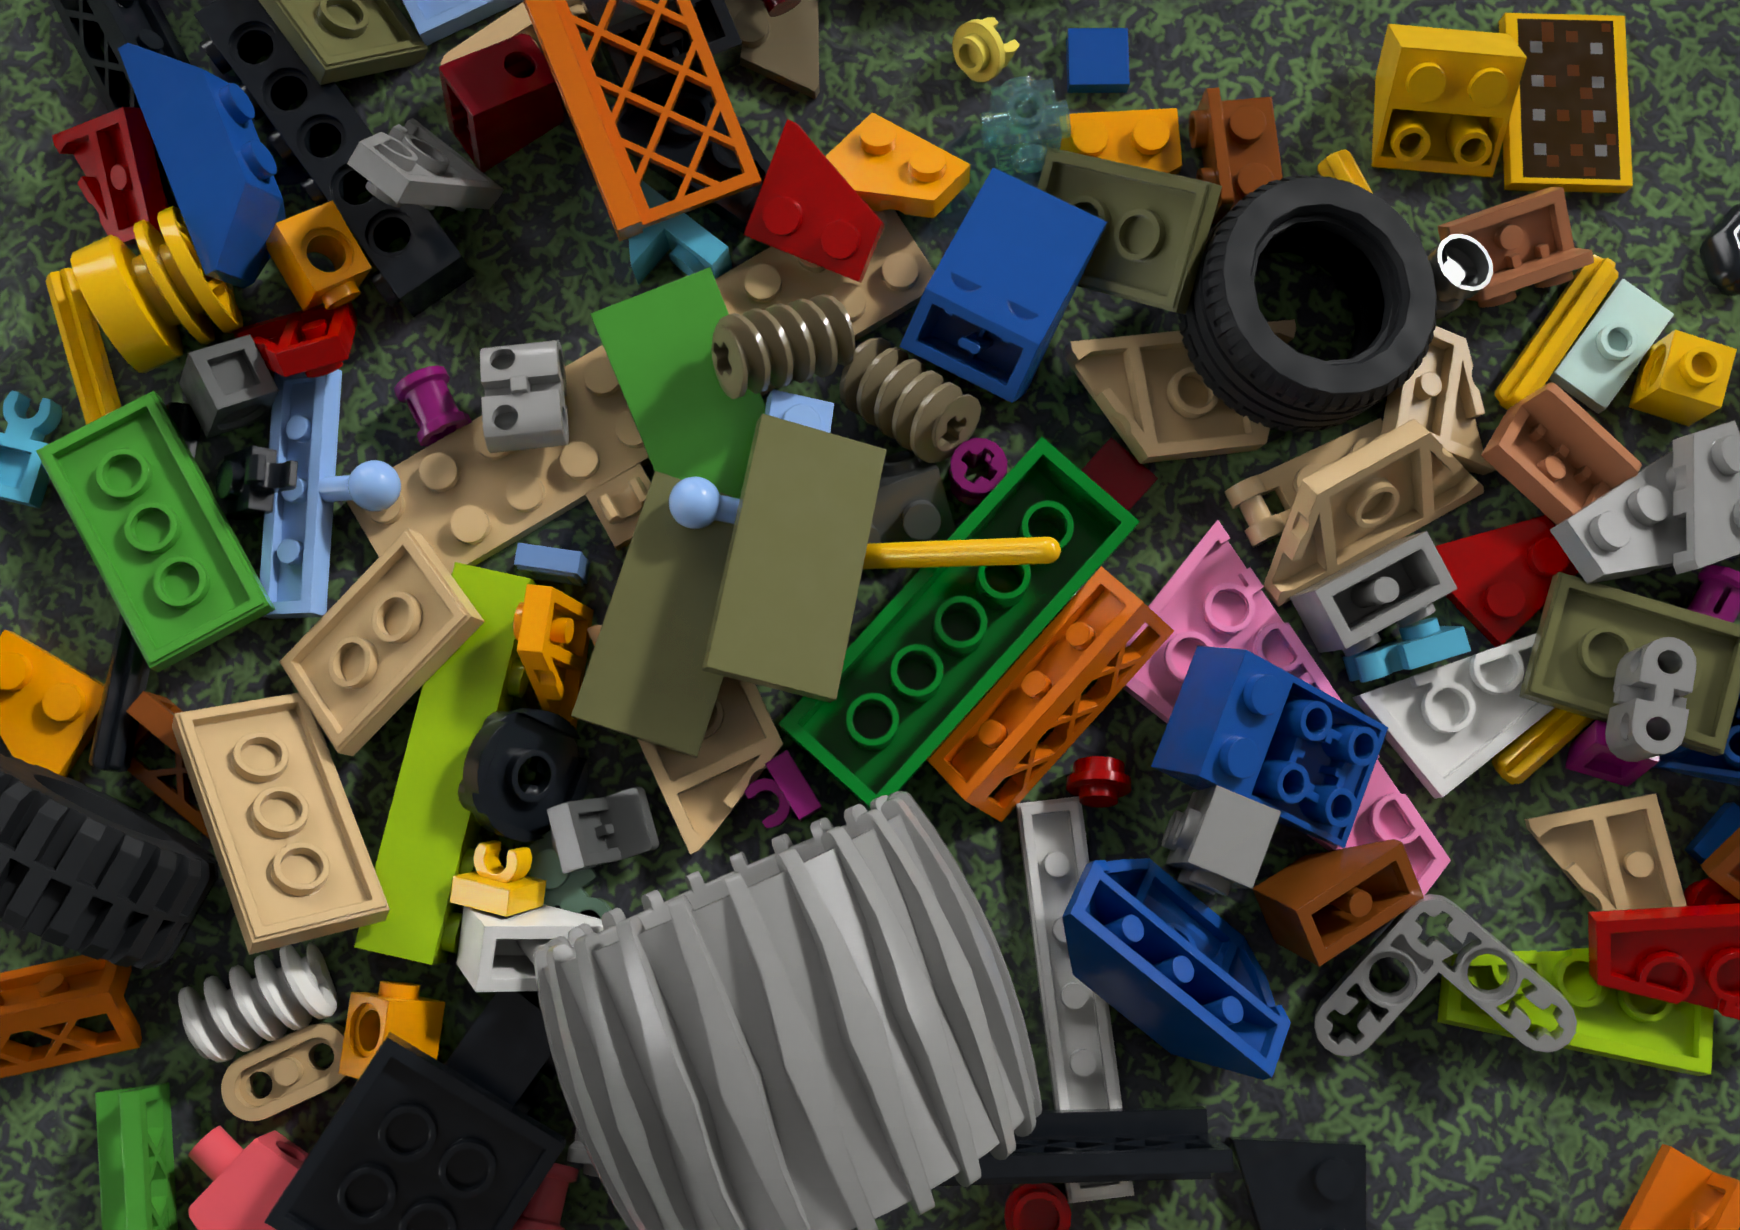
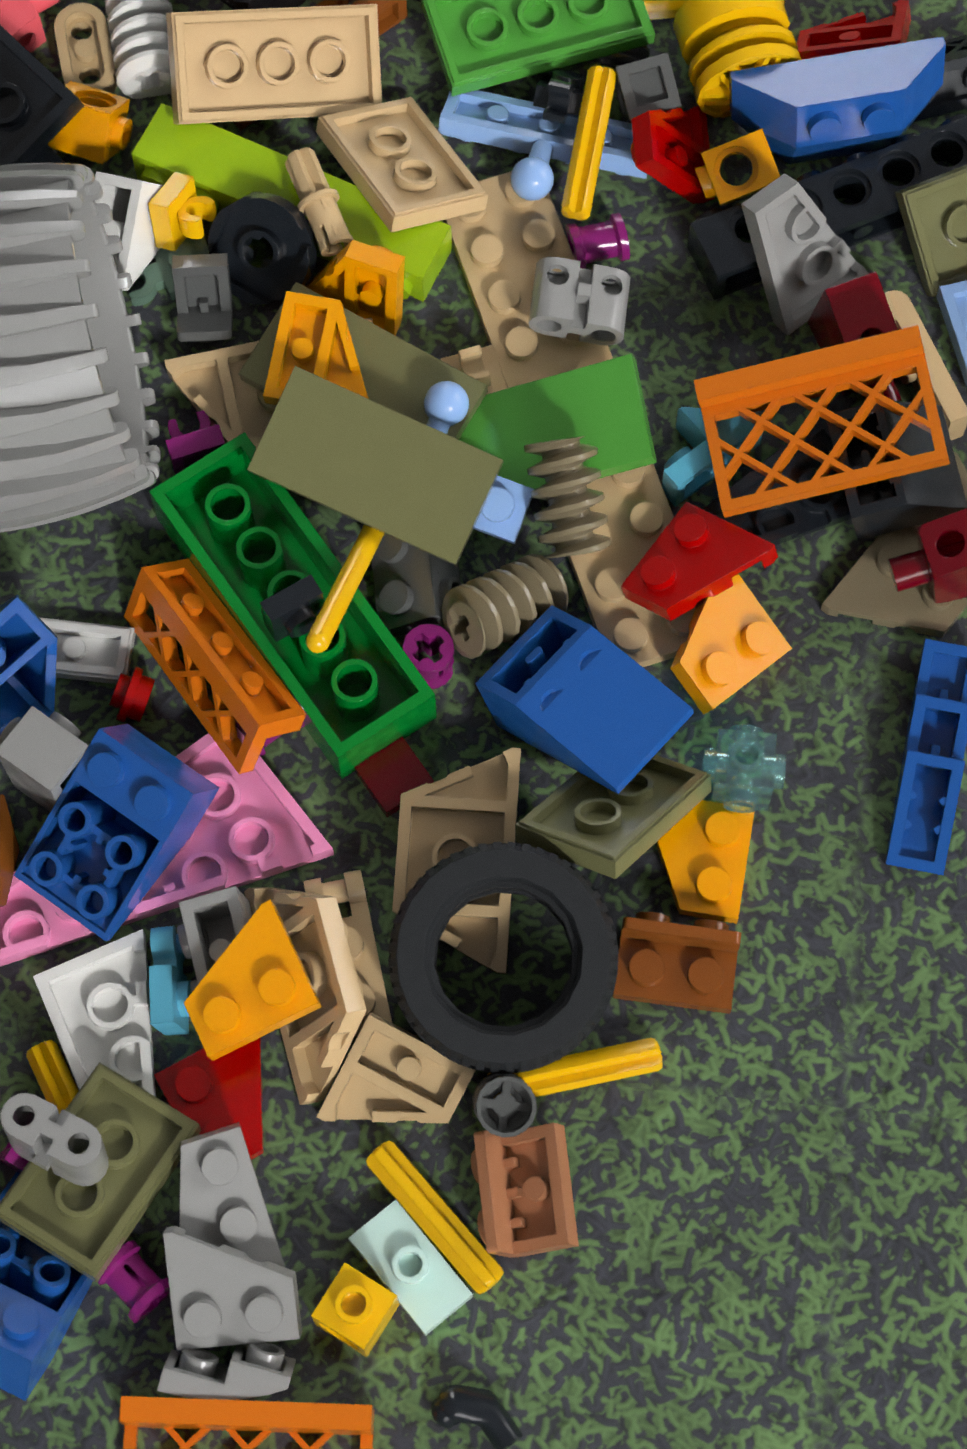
camera: 105 degrees right, 10 degrees down
(316, 428) = (588, 143): none -> yellow axle
(460, 715) = (318, 201): none -> tan axle
(552, 564) = (436, 305): medium blue tile -> none
(661, 665) = (316, 339): none -> light orange wing
(981, 50) = (828, 753): light yellow plate -> none
(997, 599) = (293, 609): none -> black plate
(1097, 60) = (804, 863): blue tile -> none
(1425, 540) = (251, 987): none -> light orange wing
(1444, 99) = (693, 1167): yellow slope -> none
(1557, 453) = (310, 1163): nougat bracket -> none
(1570, 105) = (668, 1298): tile -> none

